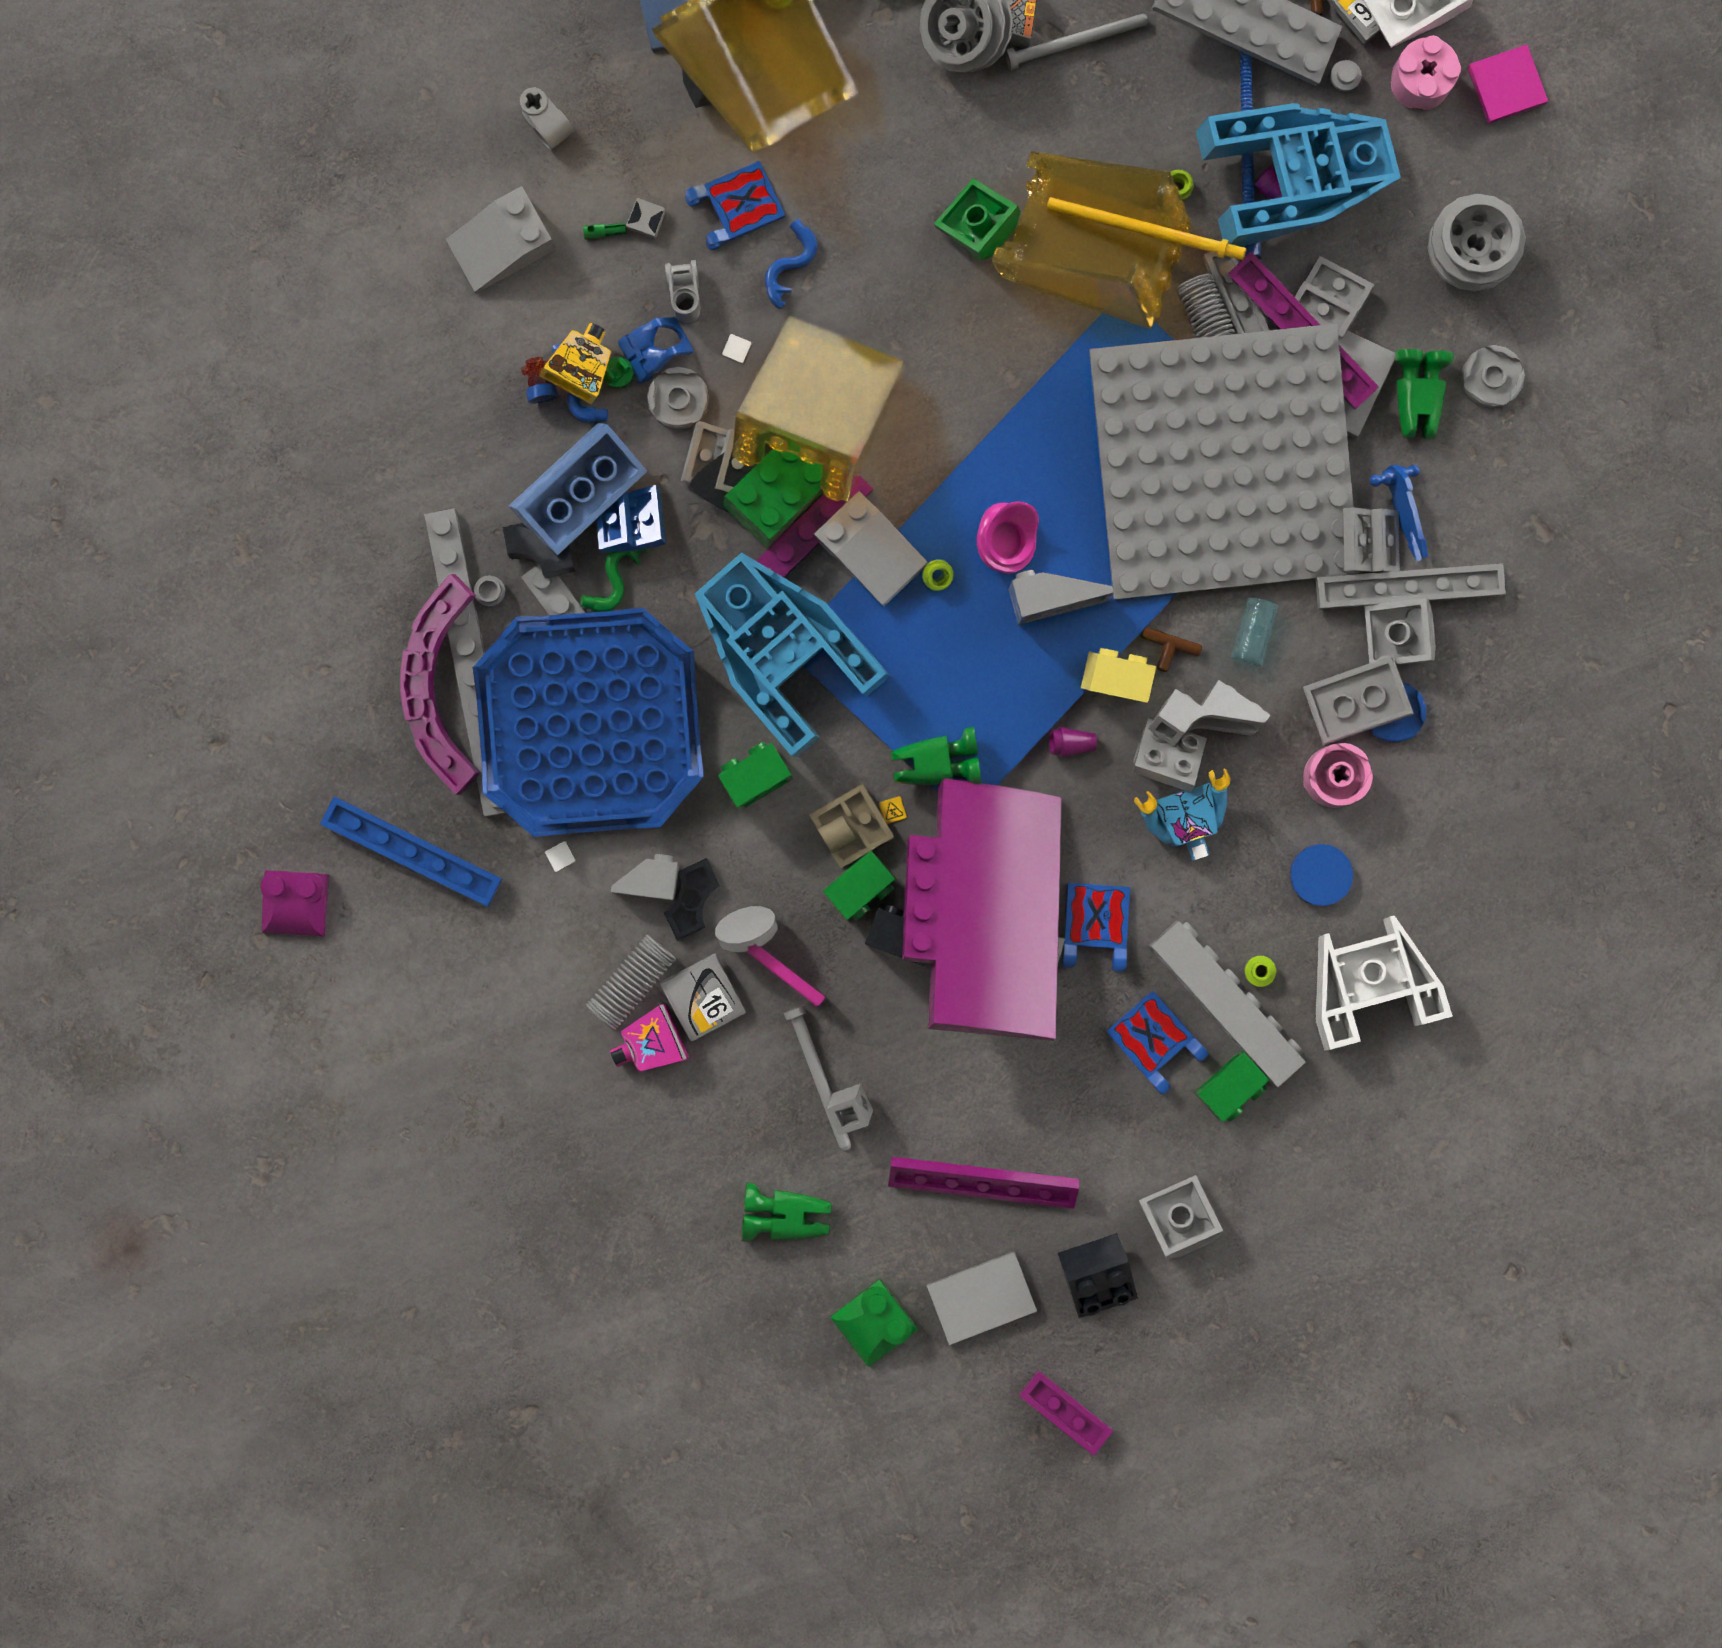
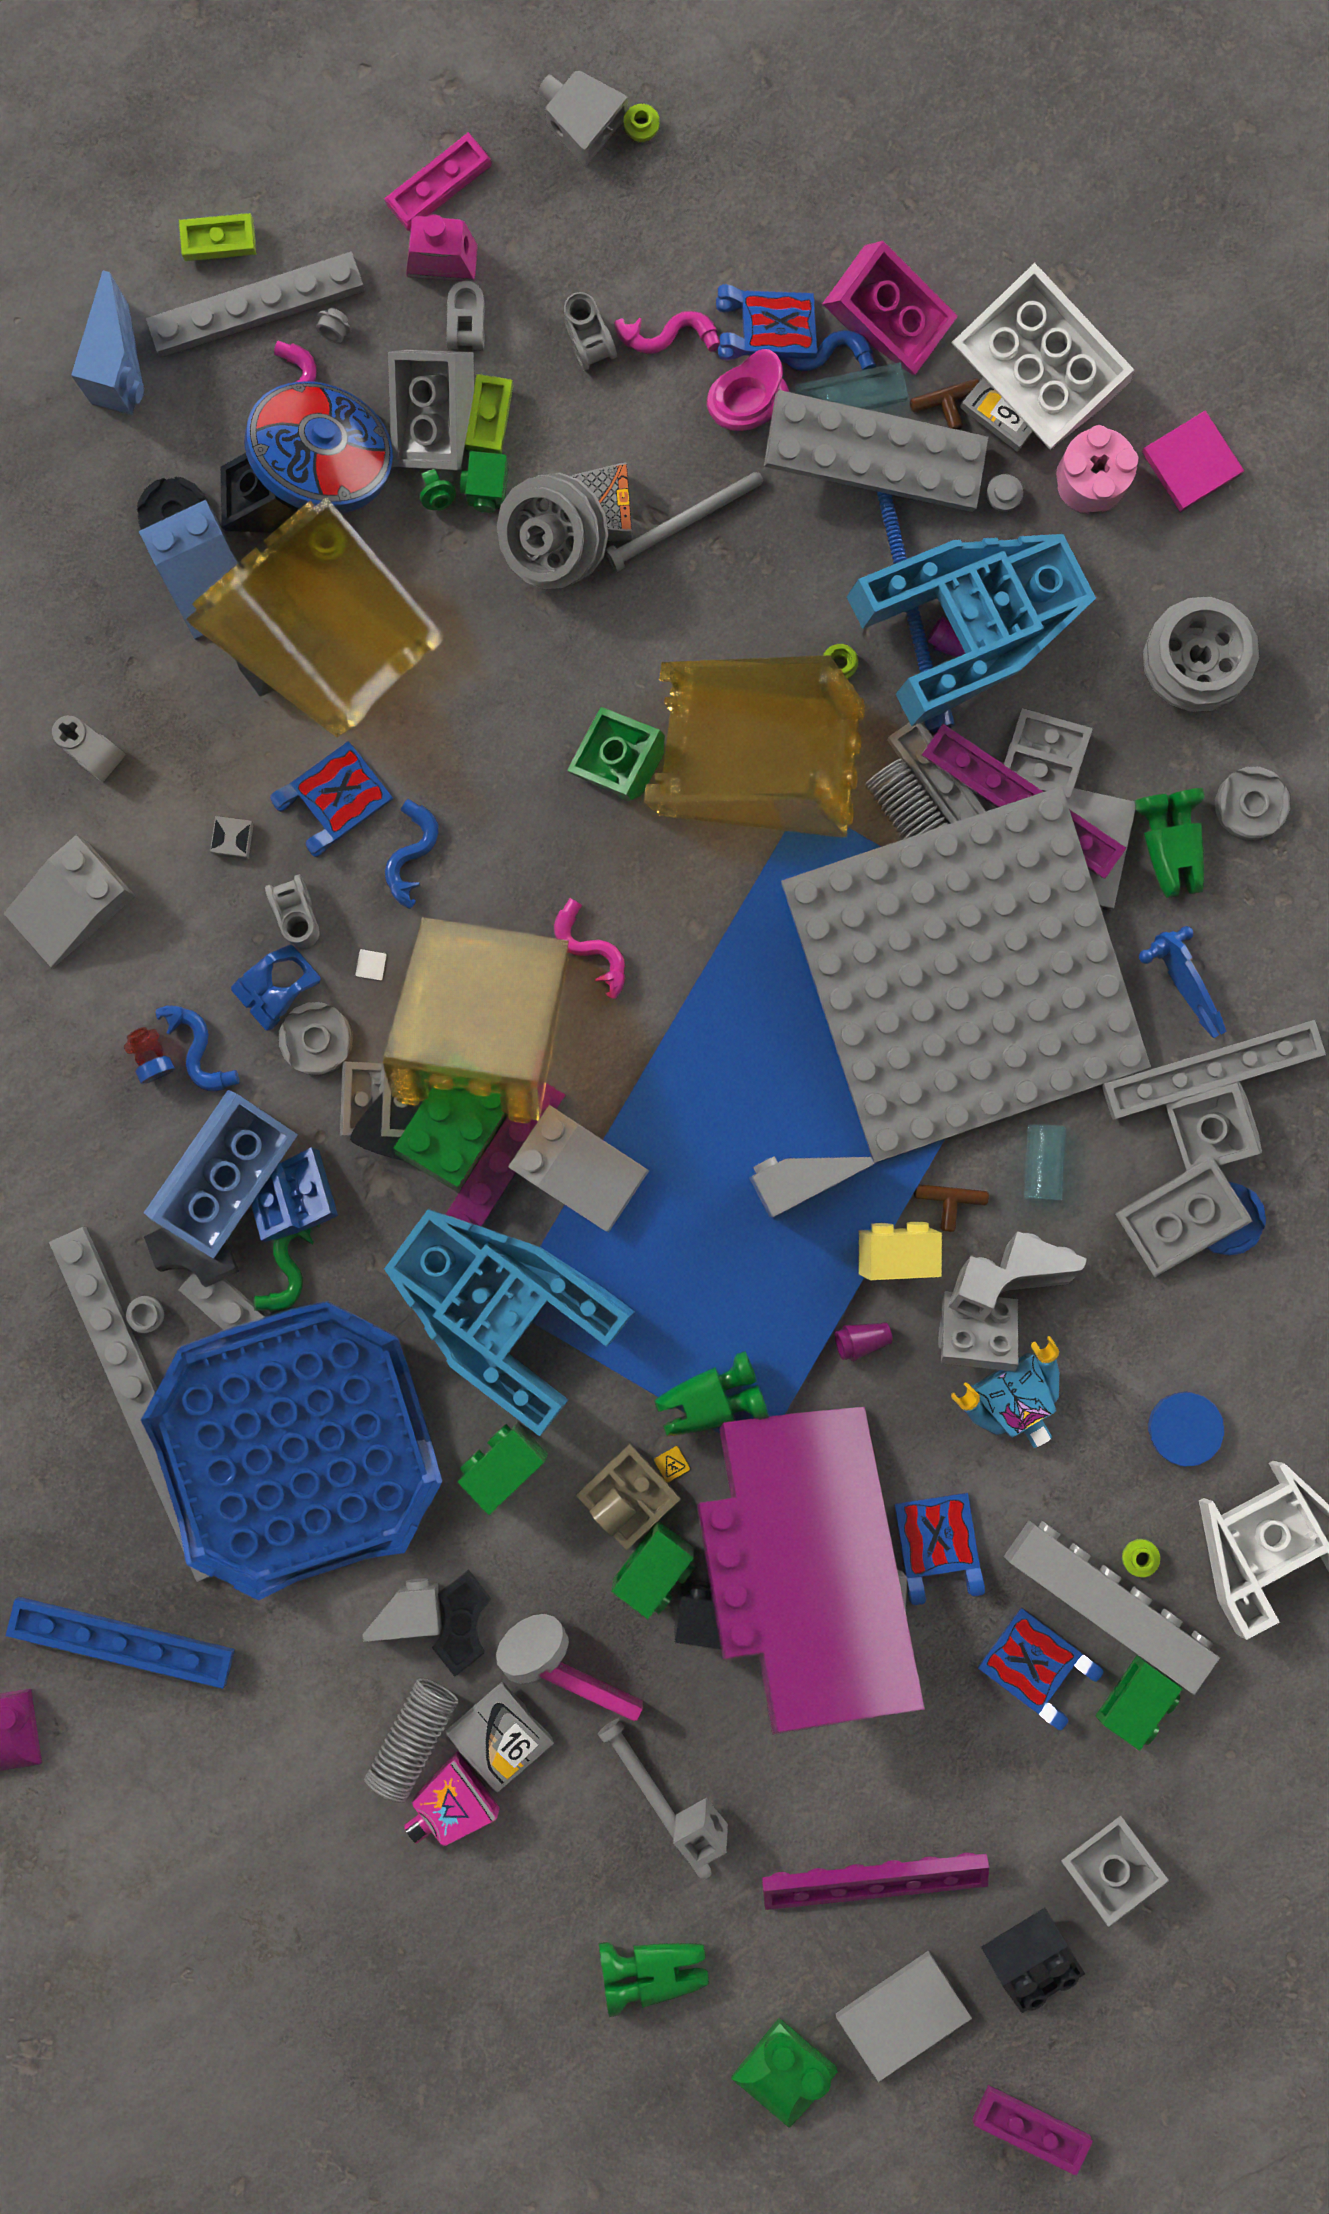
camera: 15 degrees left, 0 degrees up
(418, 684) = (85, 1445): magenta plate -> none
(560, 856) = (296, 1606): white sticker -> none
(579, 363) = (189, 1027): torso -> none
(602, 230) = (184, 862): green pin -> none
(618, 372) = (238, 1024): green plate -> none
(901, 352) = (562, 929): none -> dark pink animal
(943, 581) = (670, 1187): lime plate -> none
(1008, 536) = (734, 1119): dark pink piece -> none
(1221, 248) = (817, 723): yellow bar -> none
(1354, 769) = (1193, 1294): bright pink brick -> none
(1371, 540) = (1156, 1027): light grey slope -> none

